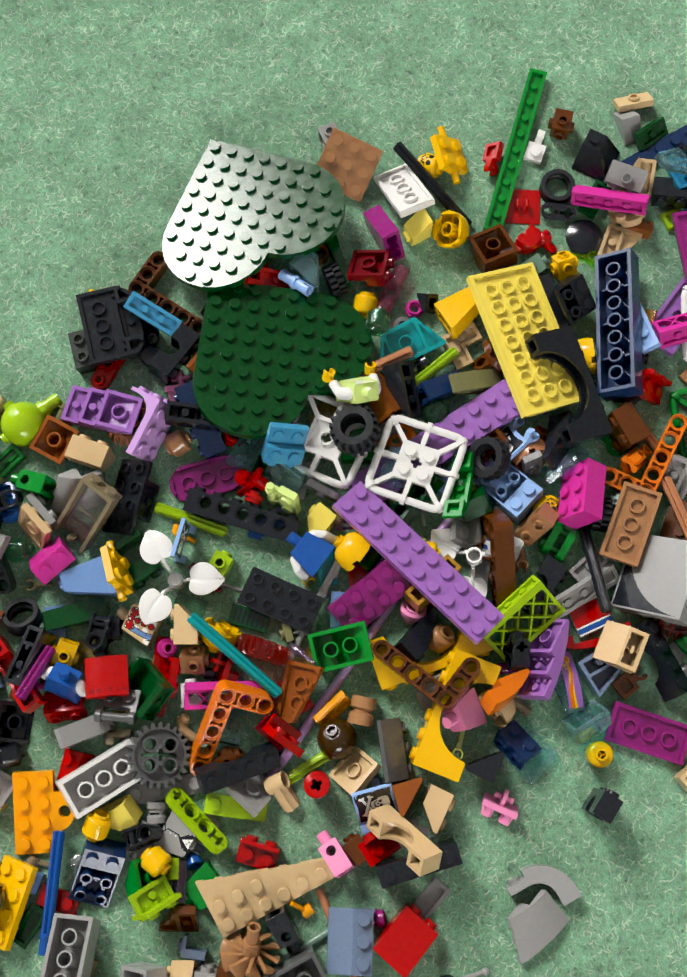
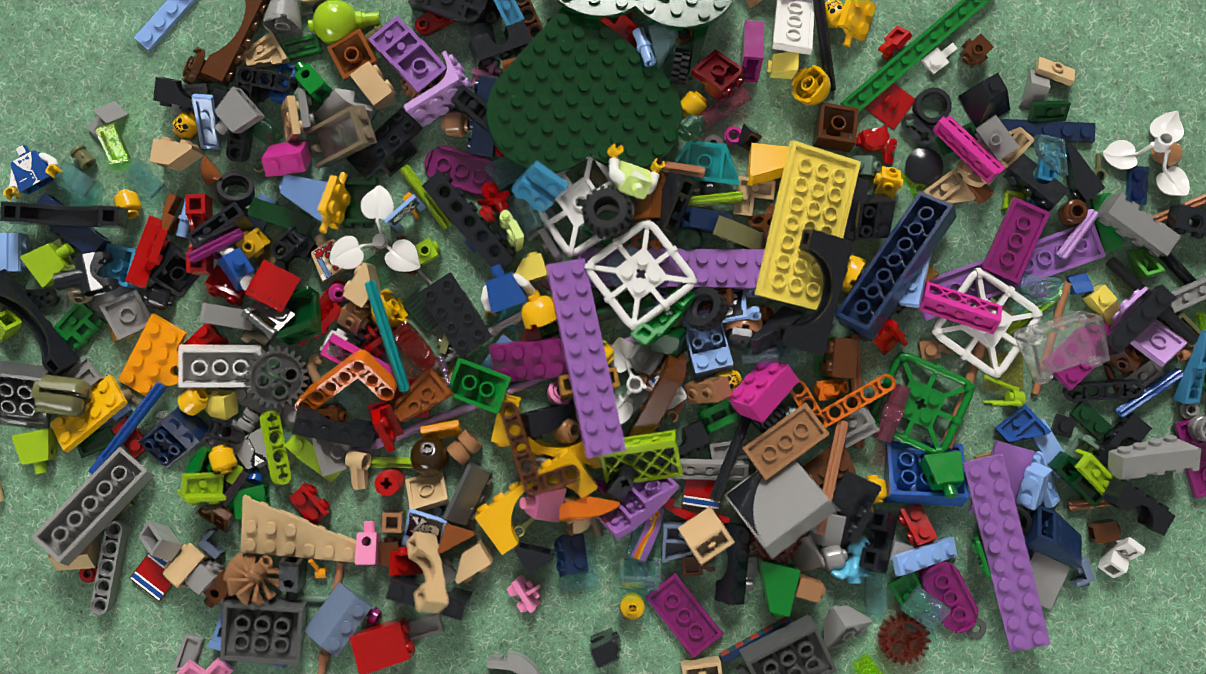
camera: 30 degrees right, 10 degrees up
(342, 818) = (393, 521): none -> medium nougat brick

